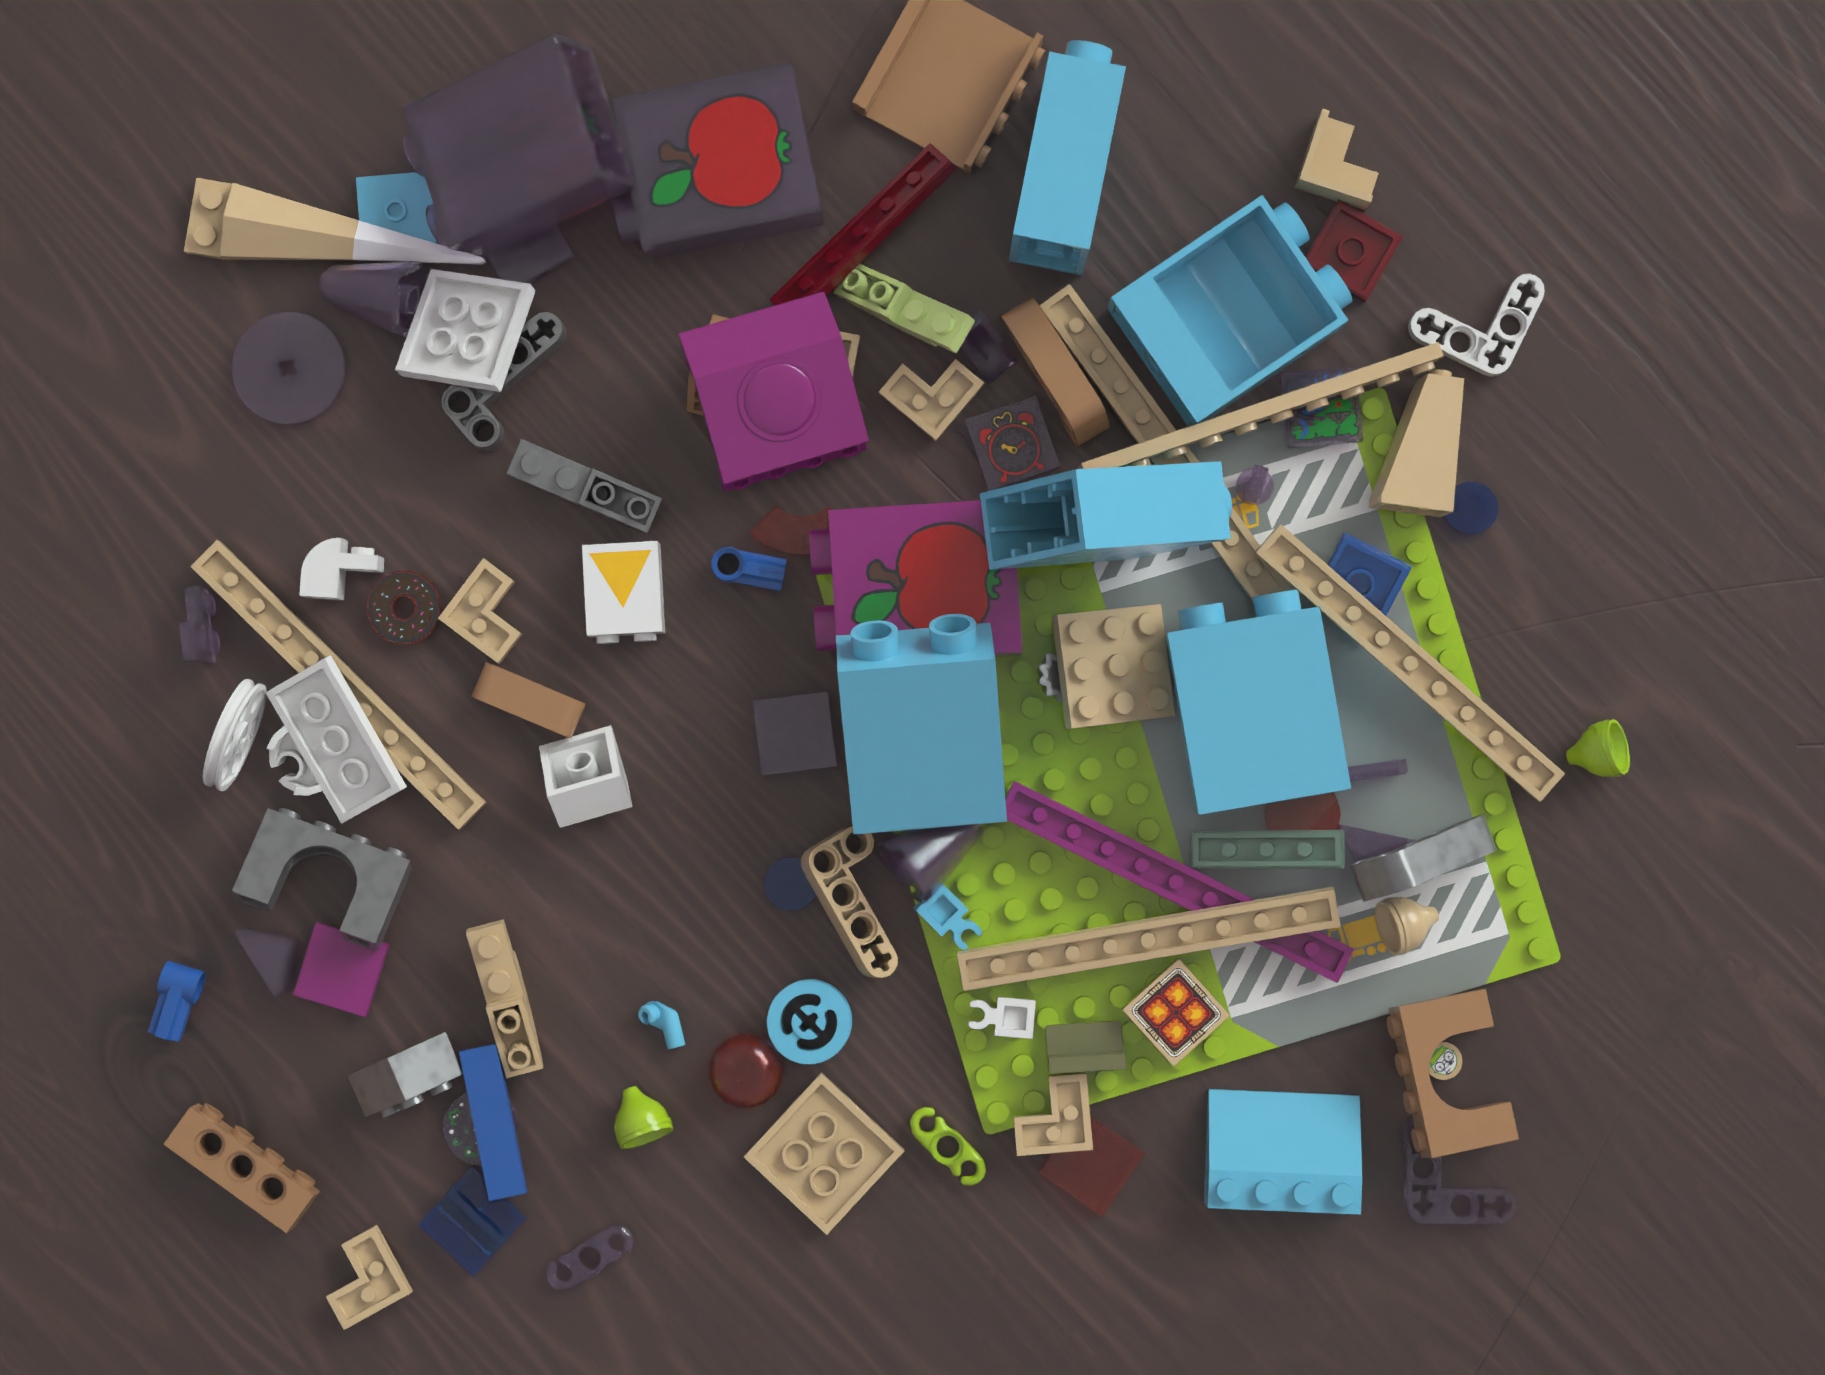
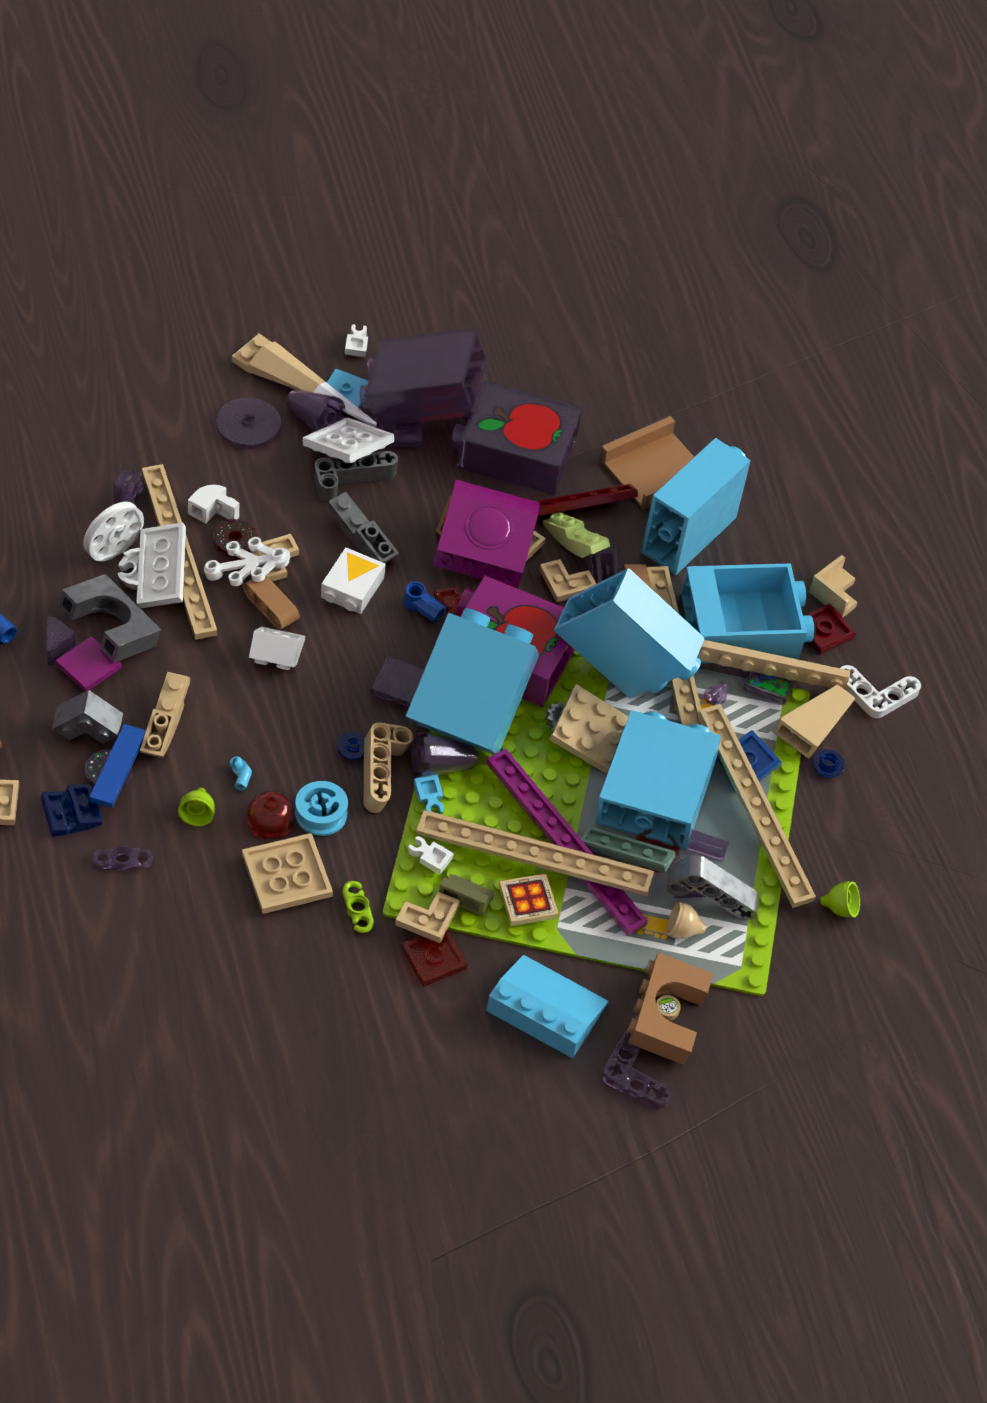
camera: 15 degrees right, 35 degrees down
(356, 103) = (356, 342): none -> white plate
(460, 655) = (272, 559): none -> white plant

